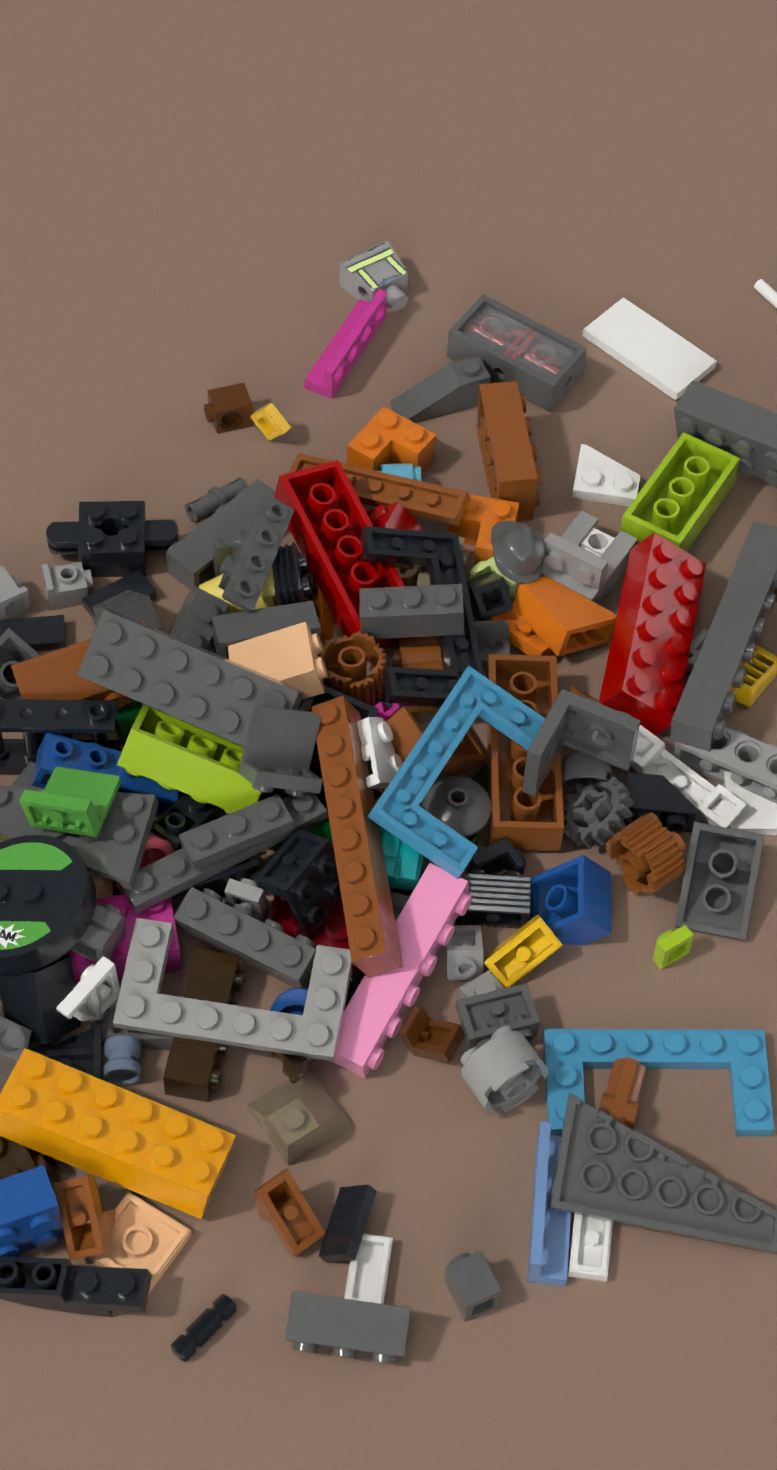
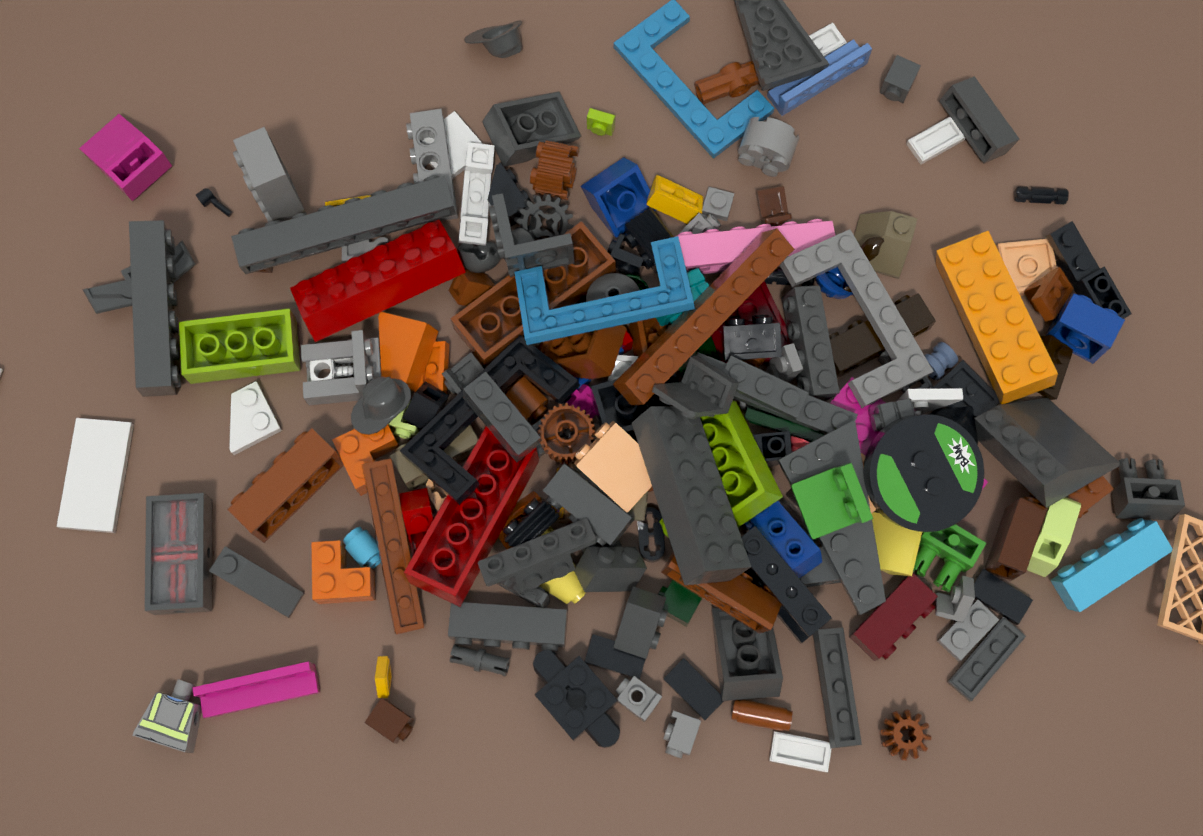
camera: 125 degrees left, 20 degrees up
(289, 1212) = (947, 198): dark orange slope -> none
(347, 1223) = (922, 166): black tile -> none
(377, 747) = (631, 349): white wing -> none
(489, 1011) = (733, 177): dark grey bracket -> none

